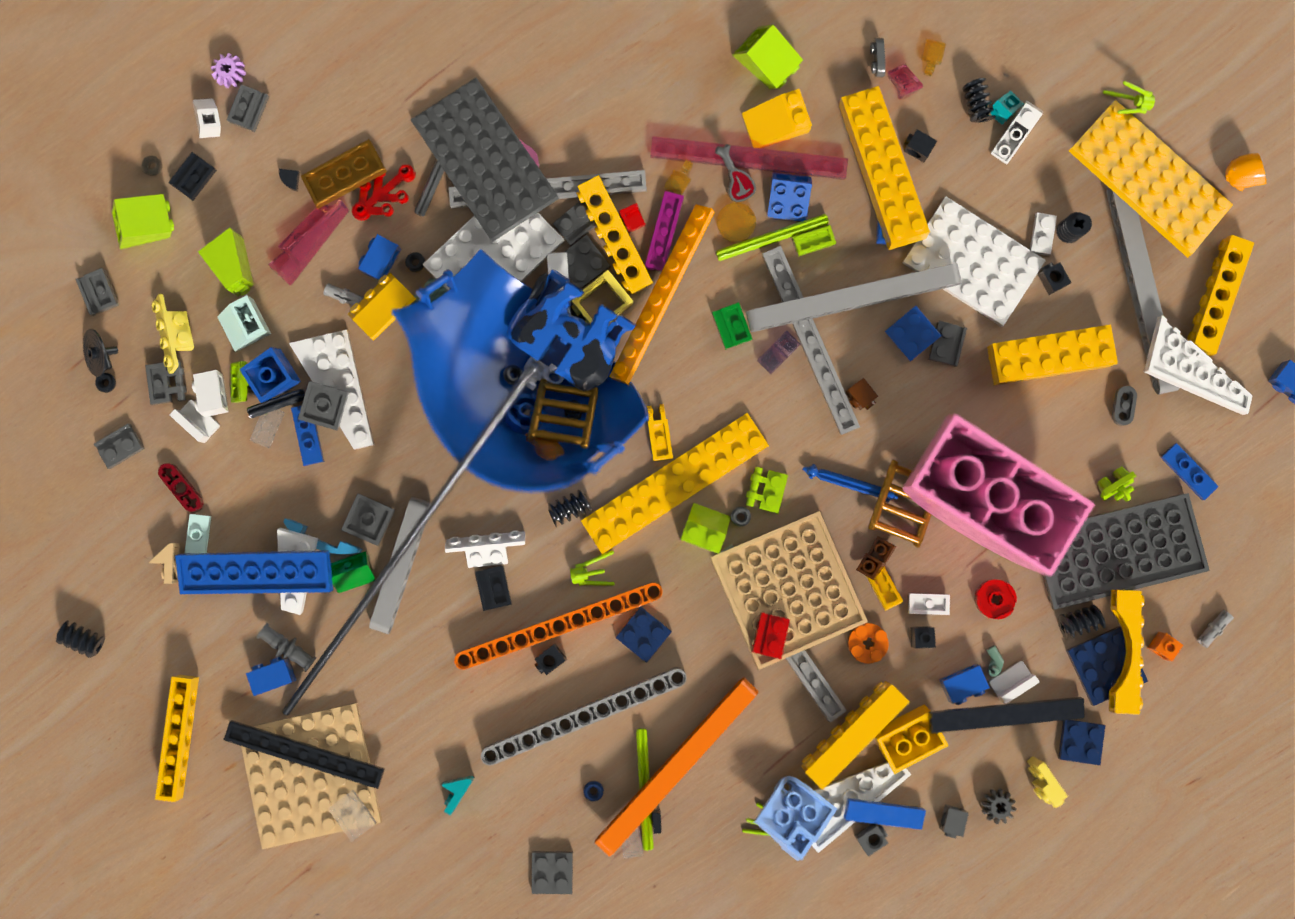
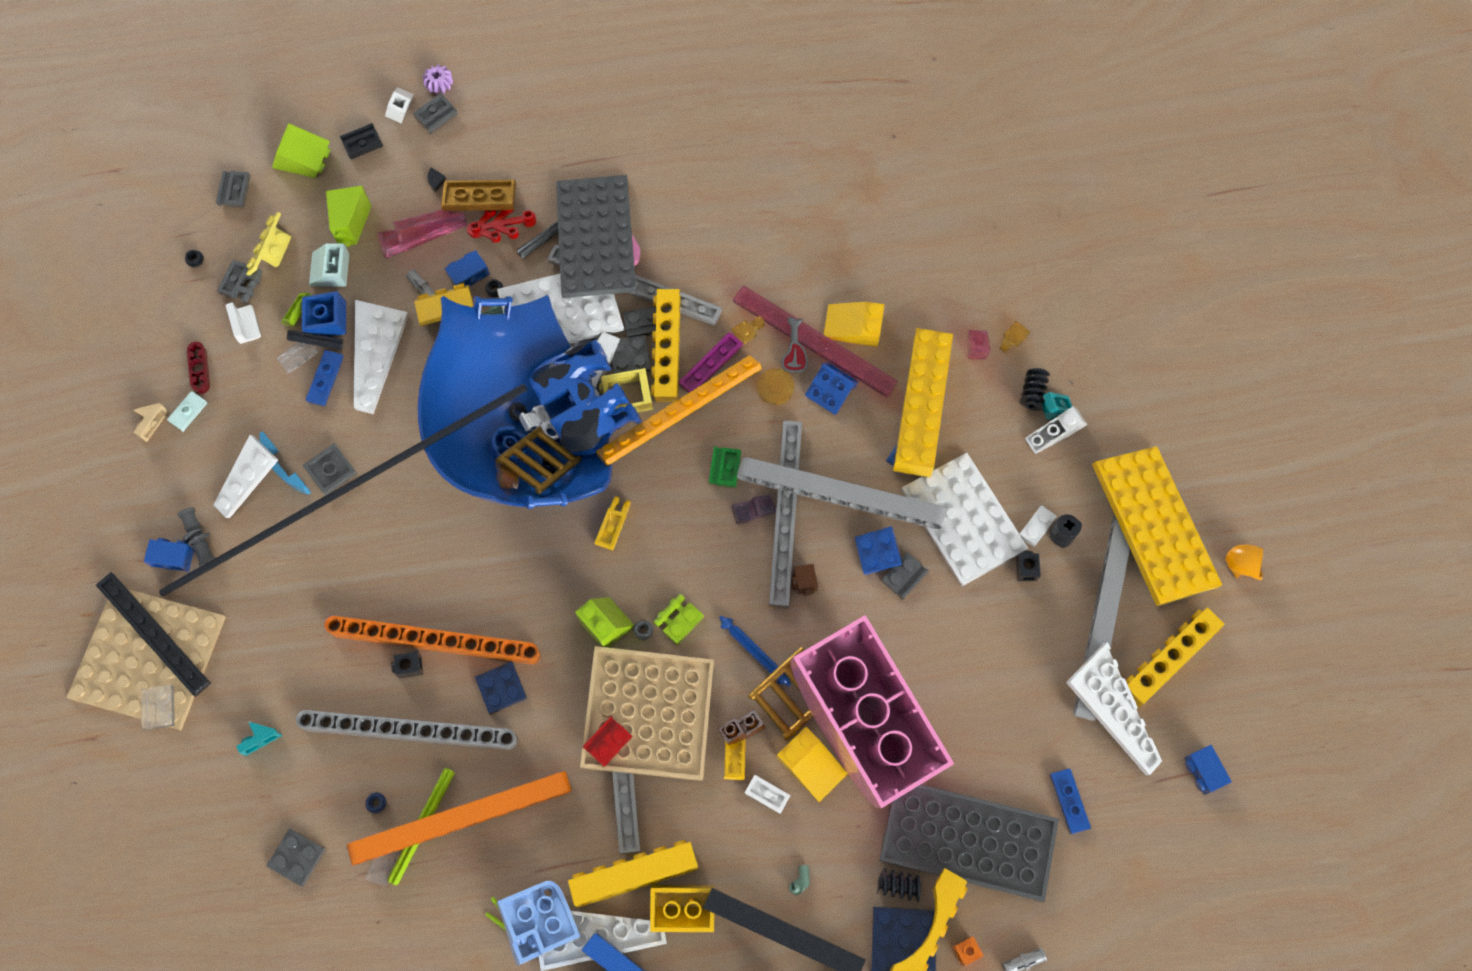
camera: 25 degrees right, 15 degrees down
(78, 640) = (39, 443): black piece -> none
(96, 354) = (200, 234): black shield -> none
(119, 446) = (172, 311): dark grey plate -> none
(146, 165) = (333, 115): clear smoke plate -> none
(177, 738) = (59, 564): yellow brick -> none
(210, 393) = (268, 306): white brick -> none
(254, 572) = (210, 460): blue plate -> none
(323, 405) = (350, 359): dark grey plate -> none
(351, 572) = (285, 503): green panel -> none
(394, 586) = (329, 523): light grey beam -> none
(485, 549) = (410, 544): white bracket -> none
(493, 588) = (397, 579): black plate -> none
(569, 507) = (500, 545): black piece -> none
(580, 575) = (478, 605): lime plant -> none
(631, 218) = (689, 339): red panel -> none
(657, 821) = (414, 860): black tile -> none
(674, 483) = (602, 572): yellow plate -> none
(768, 56) = (874, 271): lime slope -> none
(772, 237) = (799, 413): lime axle -> none
(814, 240) = (833, 432): lime plate -> none
(874, 653) = (695, 813): orange plate -> none
(878, 49) = (962, 321): dark grey plate -> none
(919, 145) = (965, 400): black brick -> none
(923, 637) = (745, 820): black brick -> none
(952, 557) = (811, 764): none -> yellow slope
(964, 684) = (760, 885): blue brick -> none
(1006, 604) = (839, 814): red plate -> none
(1013, 682) = (807, 908): white panel -> none
(1052, 354) = (993, 631): yellow brick -> none
(1124, 479) = (995, 780): lime hips -> none
(1126, 406) = (1037, 710): dark grey plate -> none
(1143, 101) = (1180, 458): lime plant -> none

